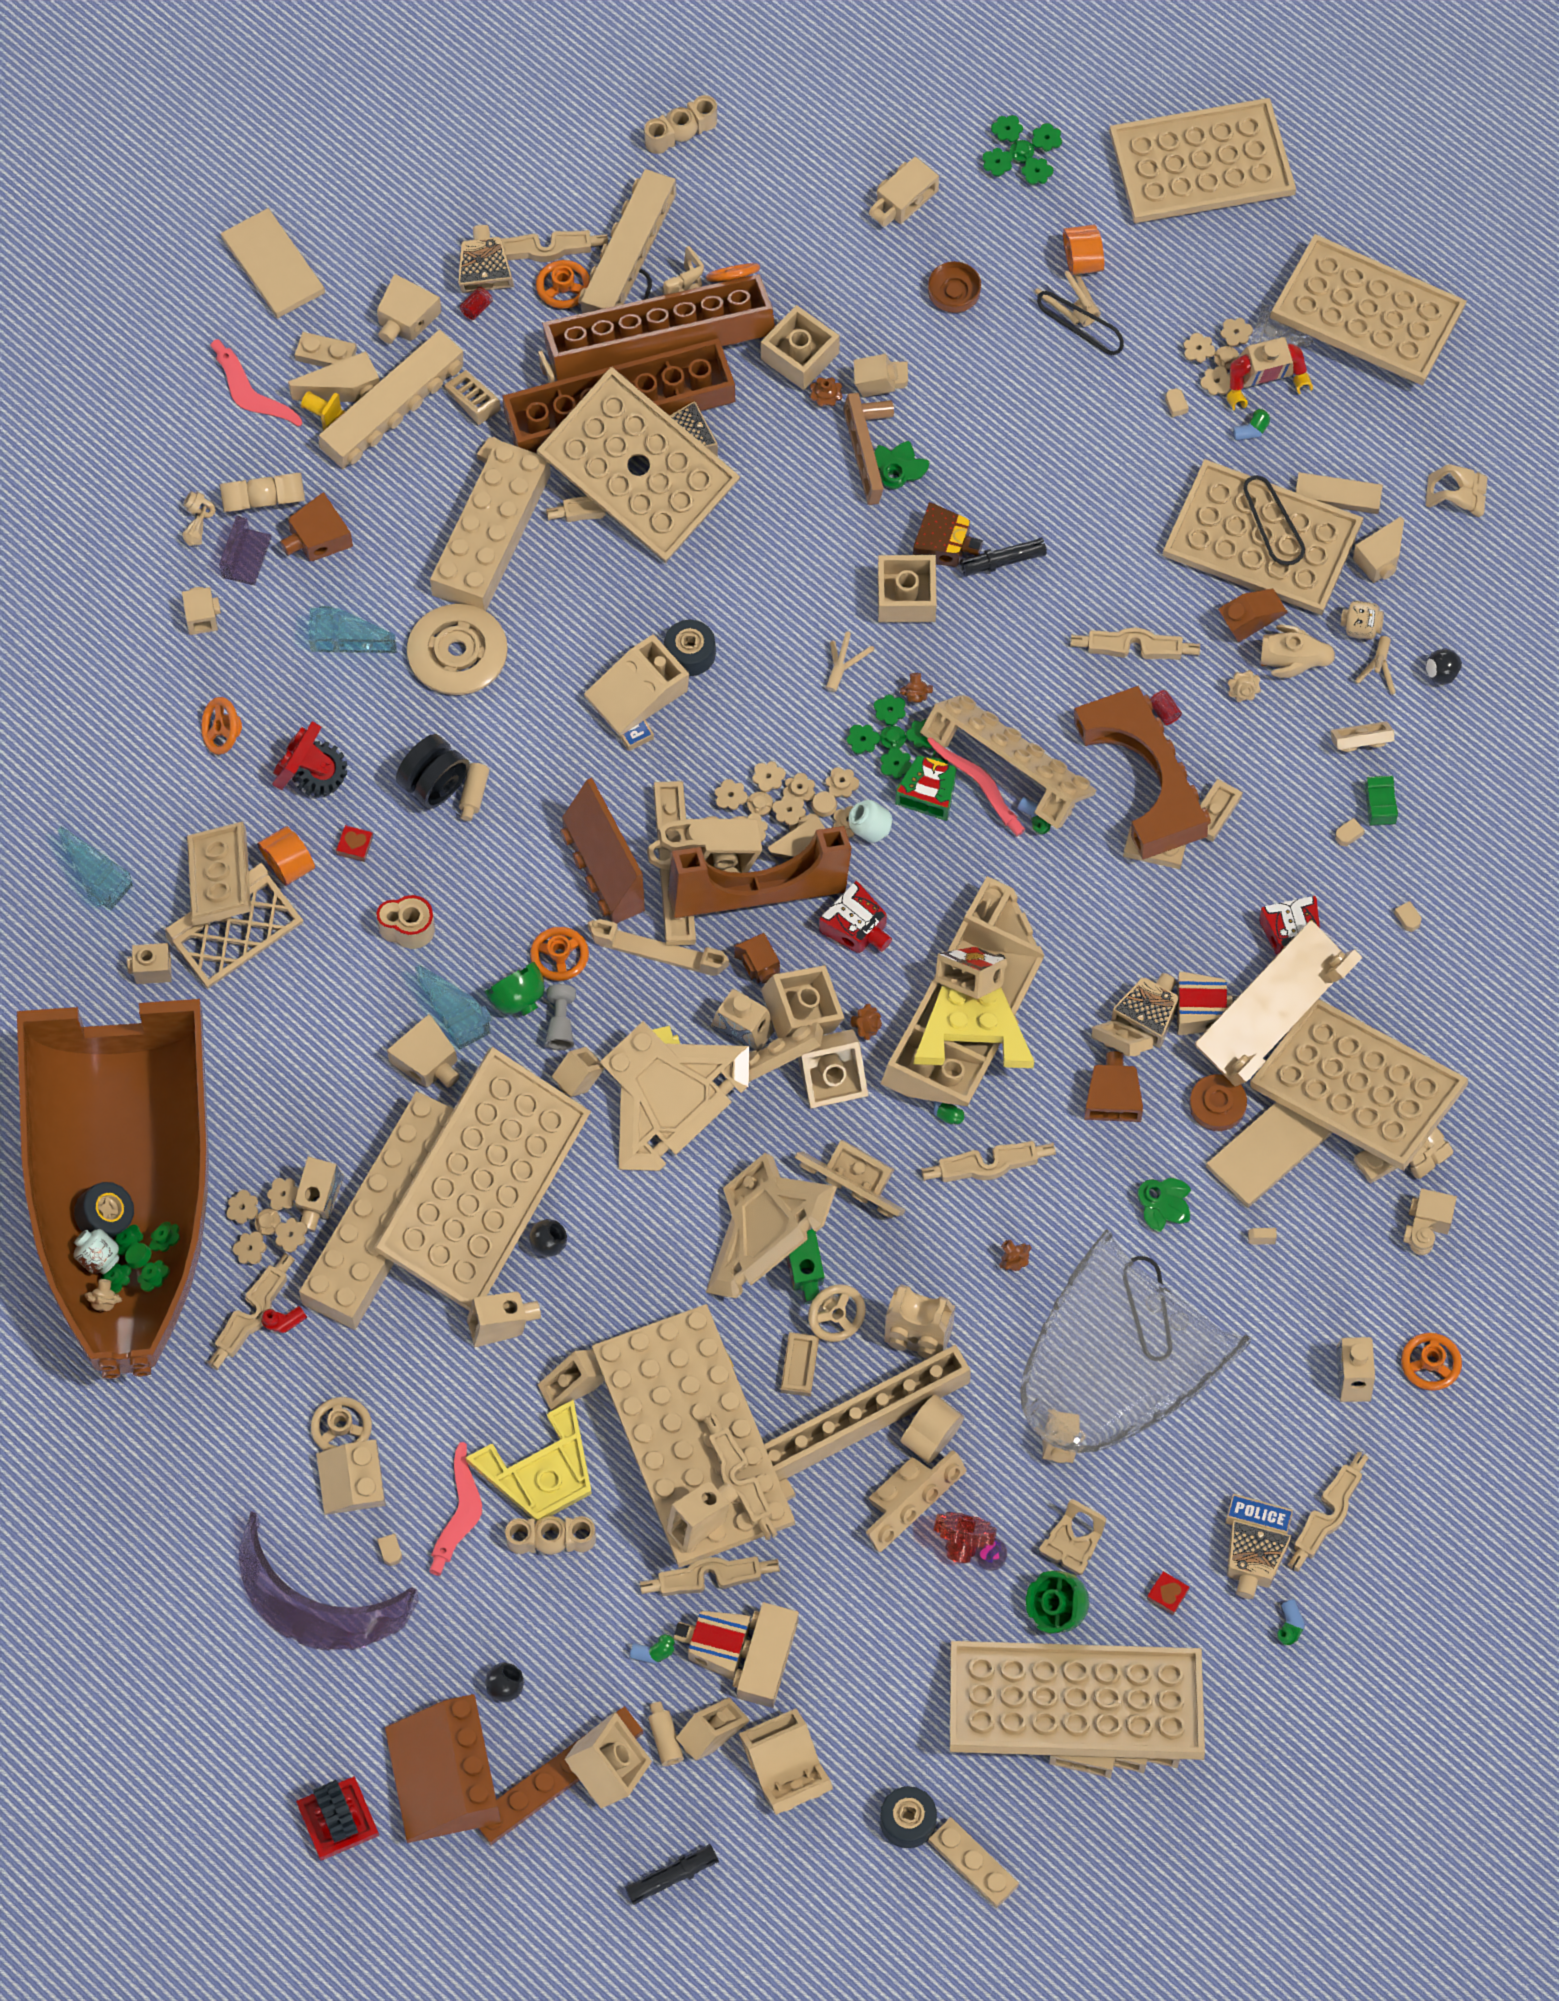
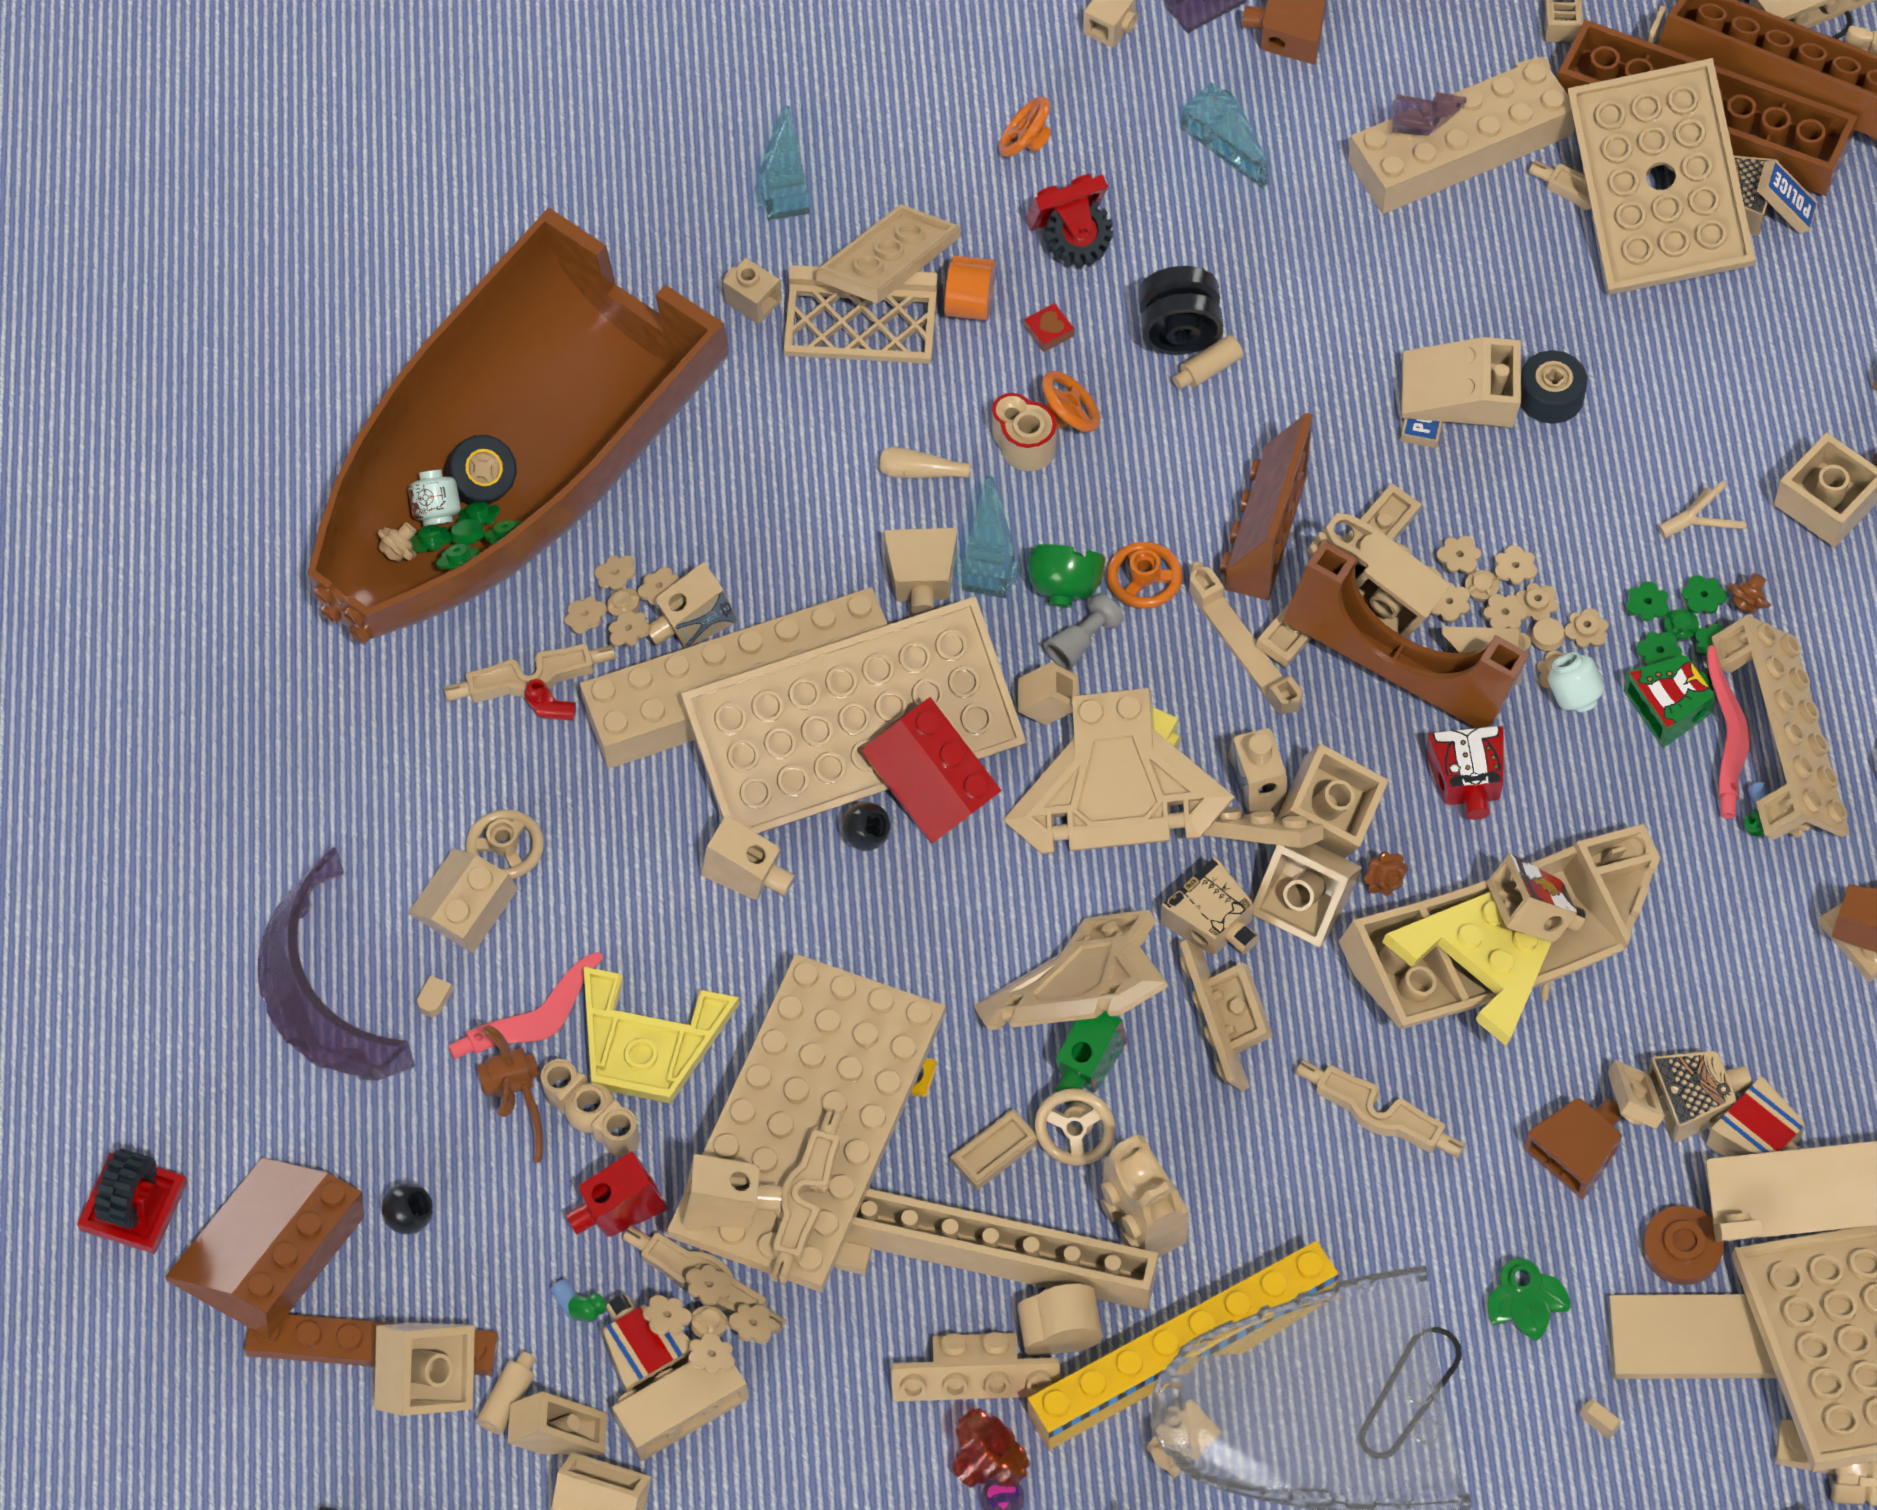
camera: 45 degrees right, 5 degrees down
(359, 993) = (914, 464): none -> tan piece
(417, 883) = (1067, 404): none -> orange piece
(438, 667) = (1333, 254): tan piece -> none
(465, 533) = (1424, 116): none -> slope
(485, 1554) = (510, 1074): none -> dark orange plant
(558, 1173) = (930, 770): none -> red slope
(571, 1379) = (753, 975): tan slope -> none
(622, 1559) = (617, 1198): none -> red torso
(718, 420) = (1787, 196): none -> tile
(743, 1595) = (708, 1321): none -> tan plant
(758, 958) = (1334, 723): dark orange window -> none
(792, 1124) = (1211, 911): none -> tan torso
(949, 1113) = (1384, 1029): green arm -> none
(1005, 1395) = (1133, 1369): none -> yellow brick
(1015, 1255) = (1314, 1222): dark orange plant -> none

